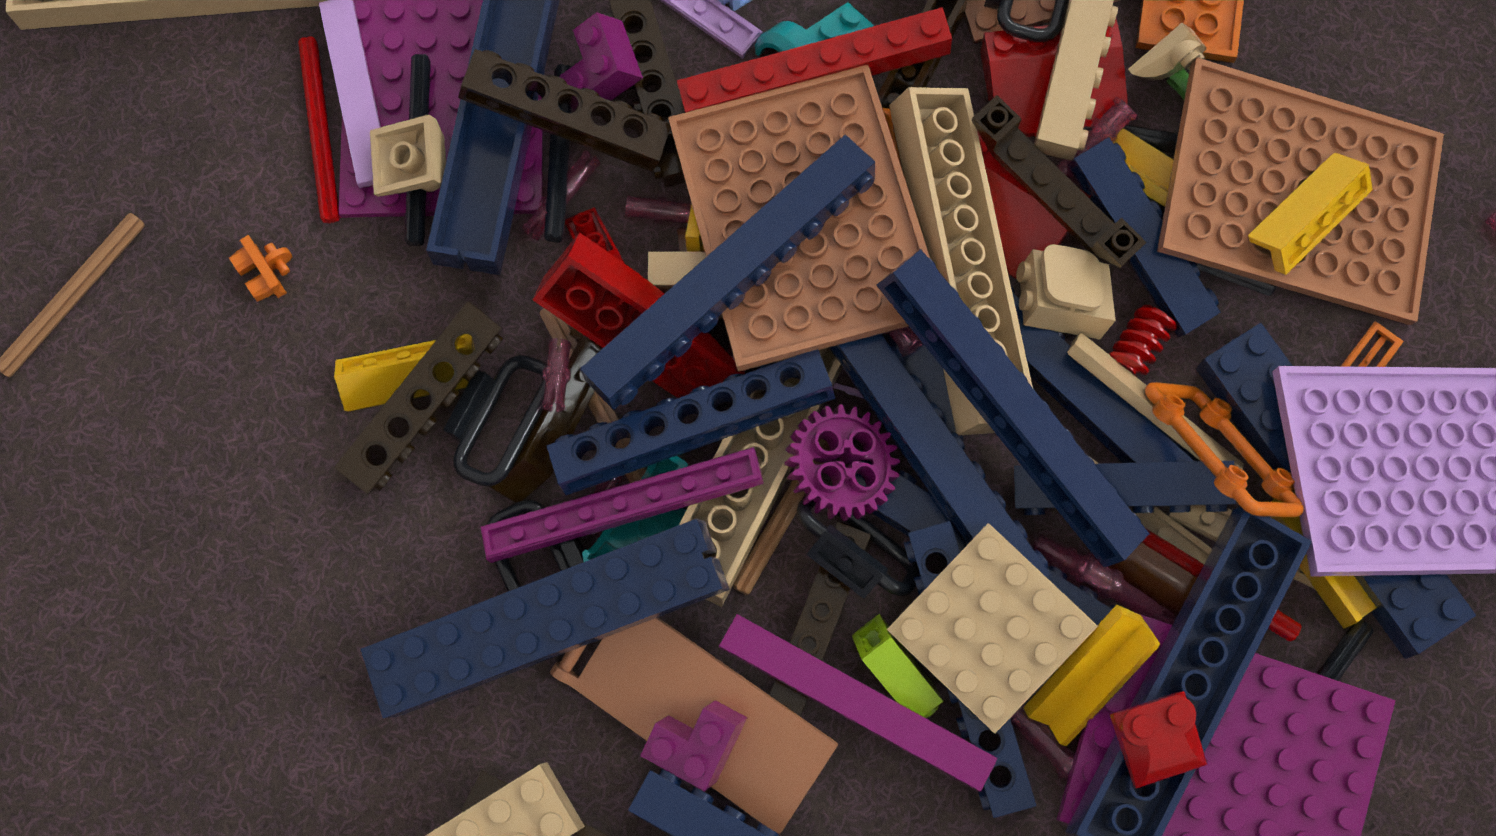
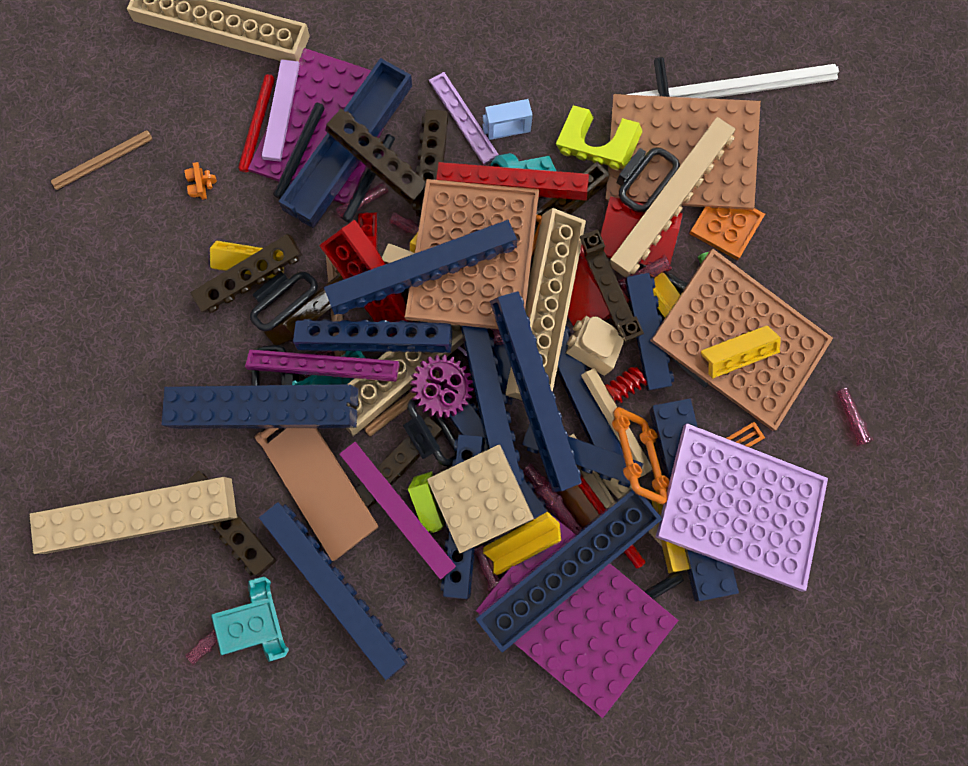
camera: 20 degrees right, 0 degrees up
(408, 156) = (290, 151): tan slope -> none
(556, 375) = (316, 287): clear pink pin -> none
(607, 58) = (411, 139): magenta brick -> none
(699, 752) = (308, 502): magenta brick -> none
(1159, 738) = (538, 588): red slope -> none
(1170, 55) = (702, 242): tan slope -> none

